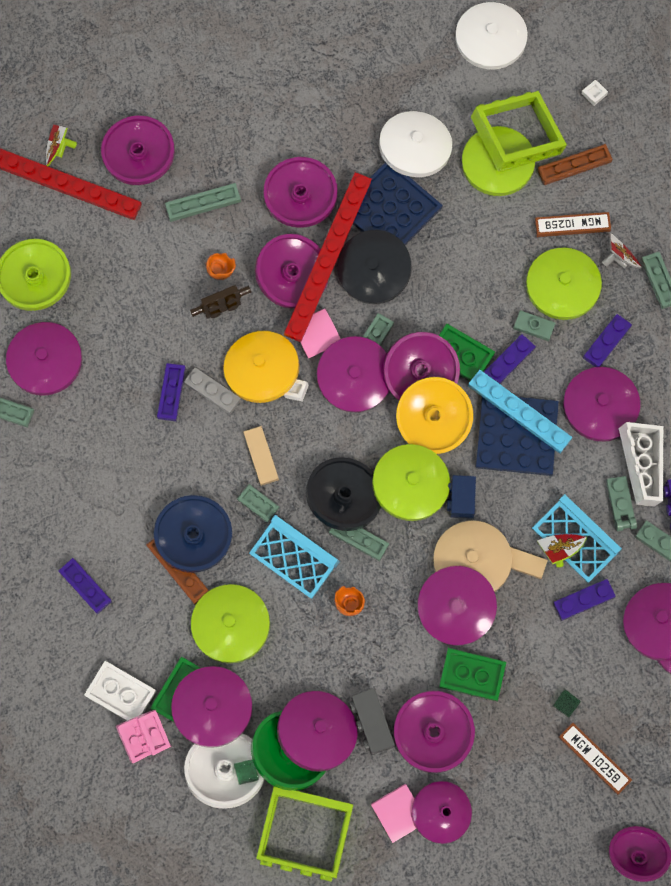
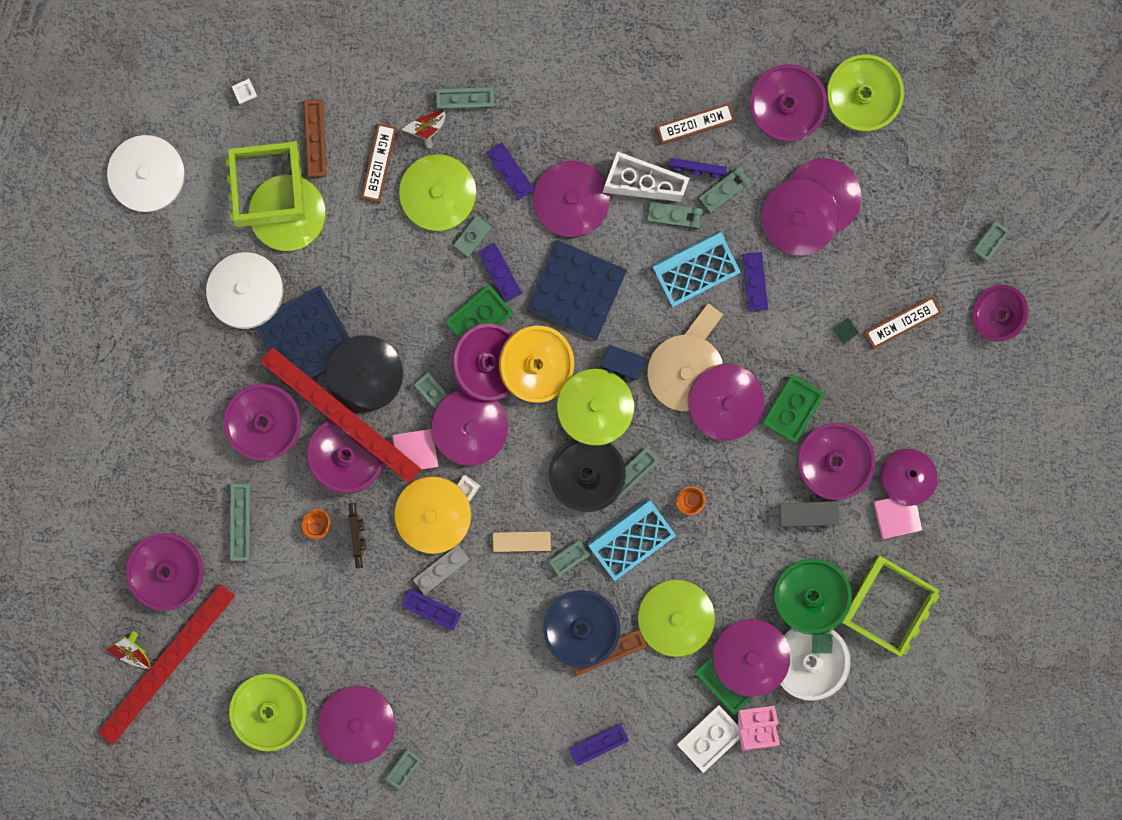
camera: 80 degrees left, 15 degrees up
(317, 731) = (803, 567): magenta dish -> none
(520, 411) = (557, 281): medium azure plate -> none
(561, 547) = (702, 287): shield -> none

